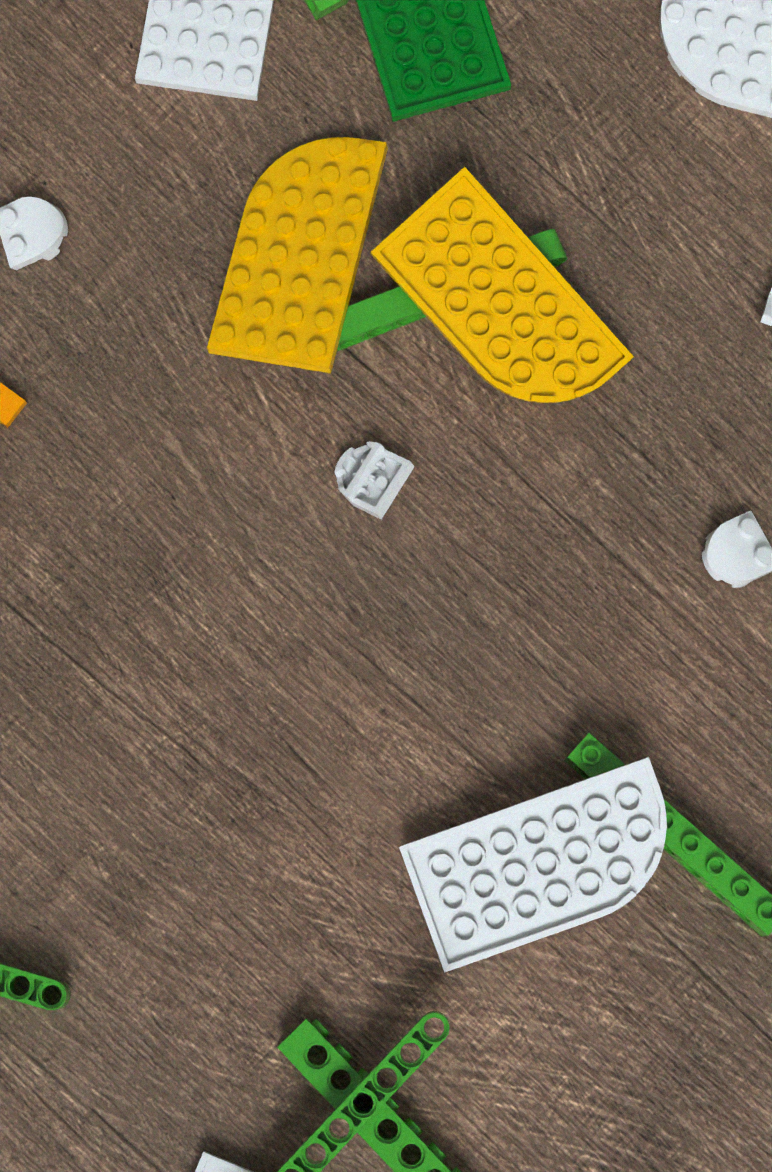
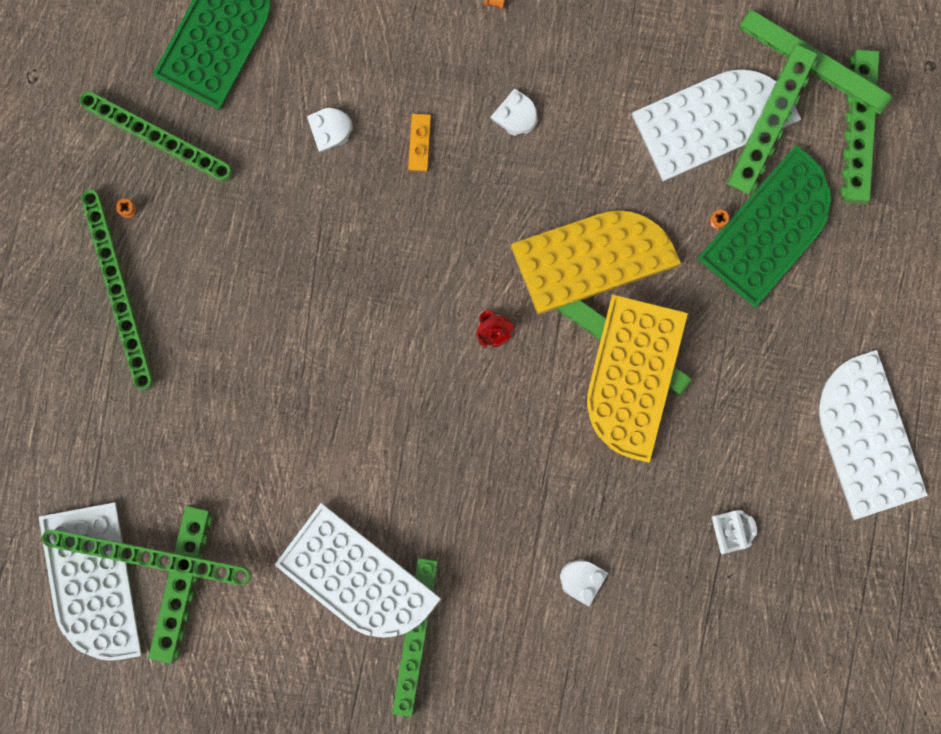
camera: 60 degrees right, 5 degrees up
(312, 448) = (494, 330): none -> red tile
(364, 50) = (725, 218): none -> orange bush
(371, 477) = (500, 369): white slope -> none

